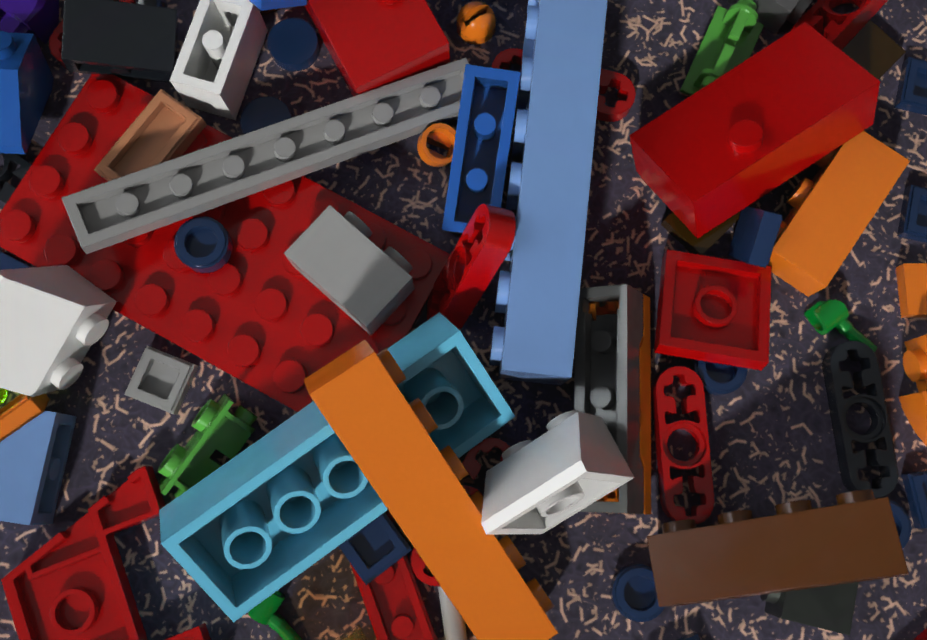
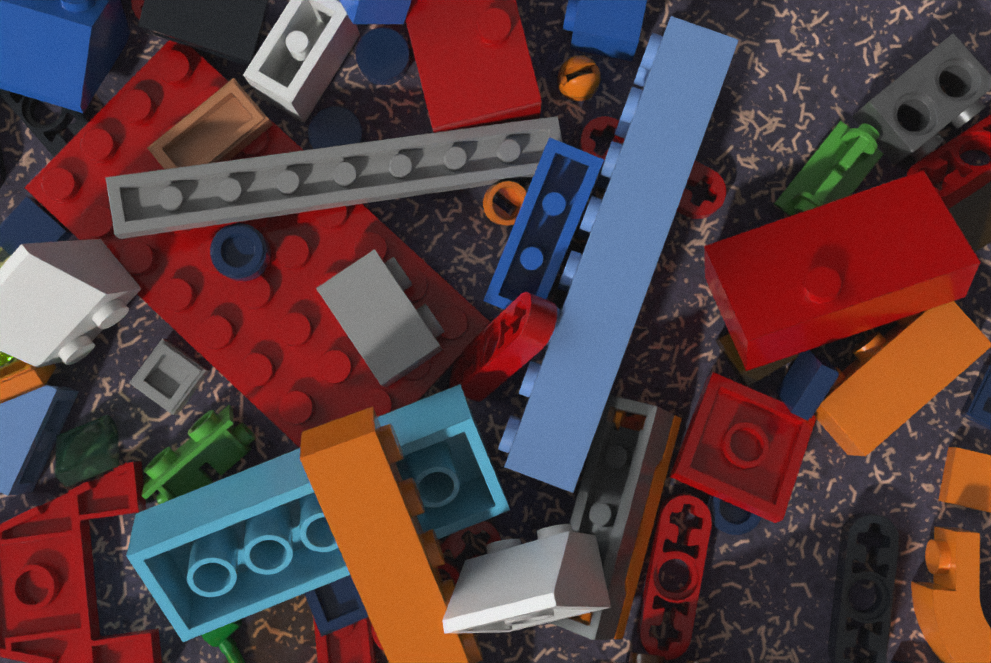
camera: 20 degrees right, 5 degrees up
(97, 468) = (86, 451): none -> clear green tile
(834, 314) = (863, 480): green hand -> none

